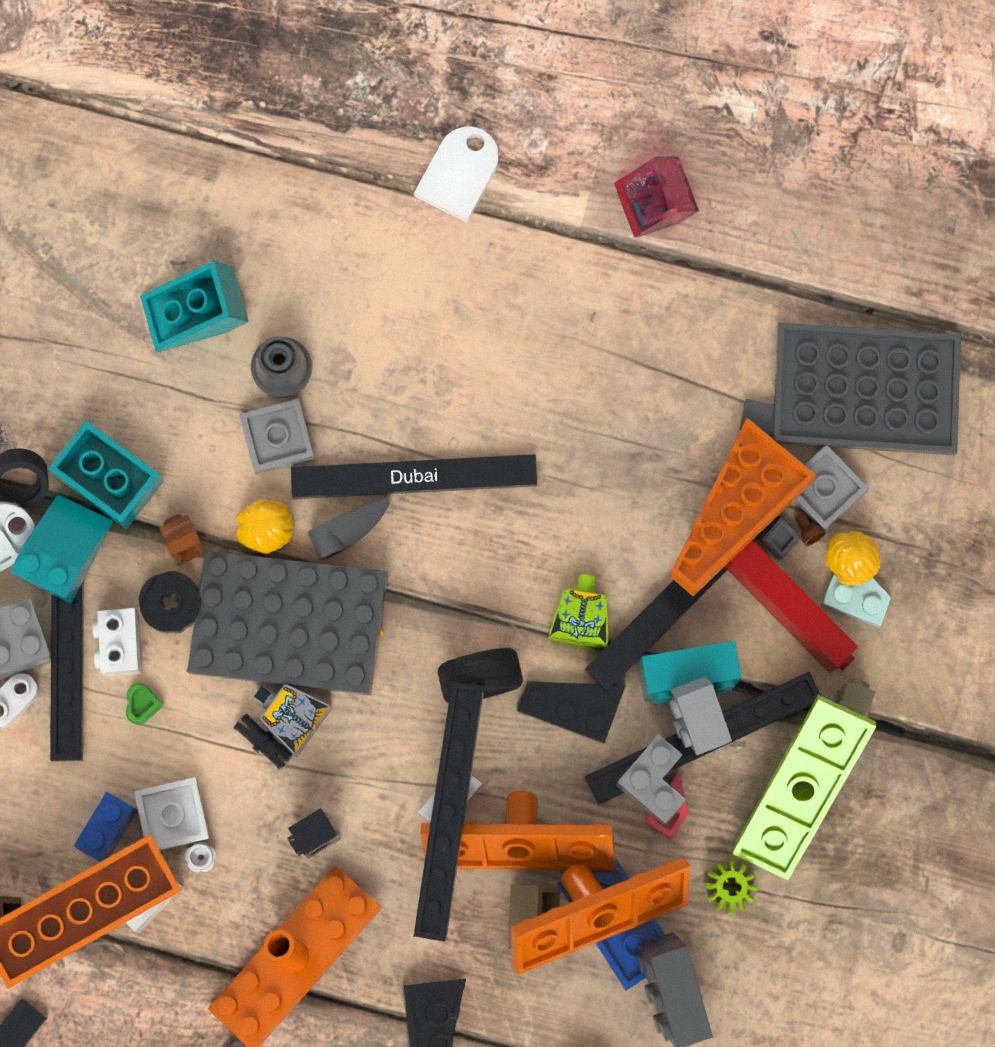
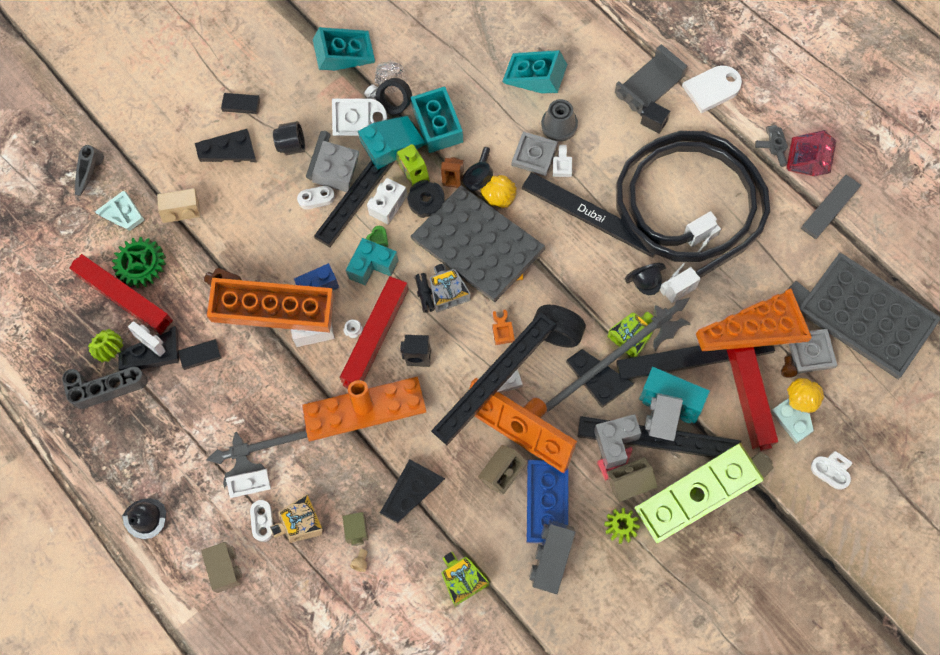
camera: 40 degrees right, 10 degrees down
(120, 568) = (410, 162): none -> lime torso
(153, 741) = (371, 257): none -> teal brick
(172, 813) = (354, 298): white plate -> none
(221, 518) = (478, 174): none -> black piece
(235, 846) = (374, 331): none -> red brick
(327, 428) = (562, 165): none -> white plate
(346, 529) = (534, 216): dark grey piece -> none
(367, 218) = (652, 80): none -> dark grey panel
(406, 726) = (502, 330): none -> orange plate
(408, 273) = (654, 117): none -> black brick
(548, 525) = (647, 278): none -> black helmet
(581, 395) = (701, 228): none -> black piece
(598, 912) = (538, 485): orange plate -> none
(600, 209) = (776, 144): none -> dark grey piece
(610, 579) = (660, 320): none -> dark grey piece
(706, 819) = (632, 479): none -> dark tan brick
(727, 258) = (830, 206): none -> dark grey tile
(779, 537) = (769, 360): dark grey tile -> none
(945, 638) = (832, 471): none -> white bracket

